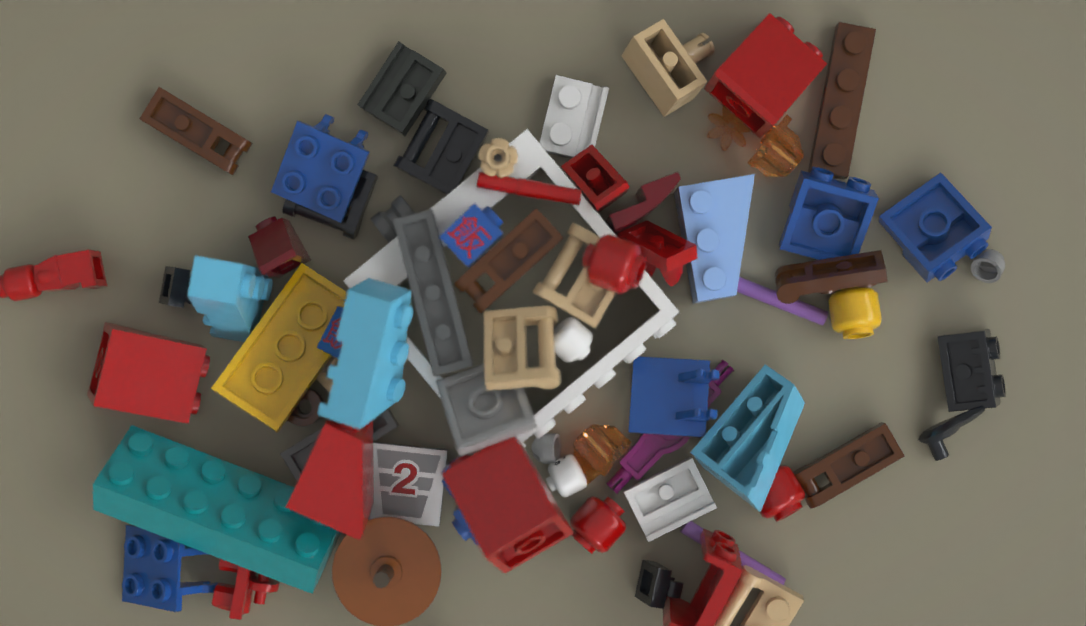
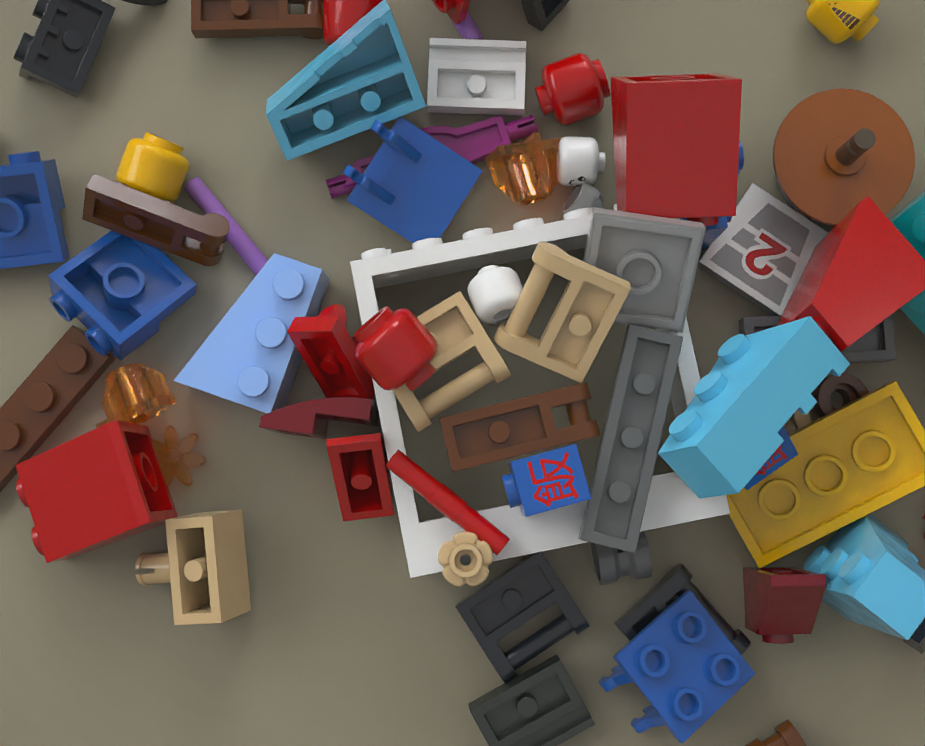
camera: 155 degrees left, 5 degrees down
(572, 116) = (347, 568): white plate -> none

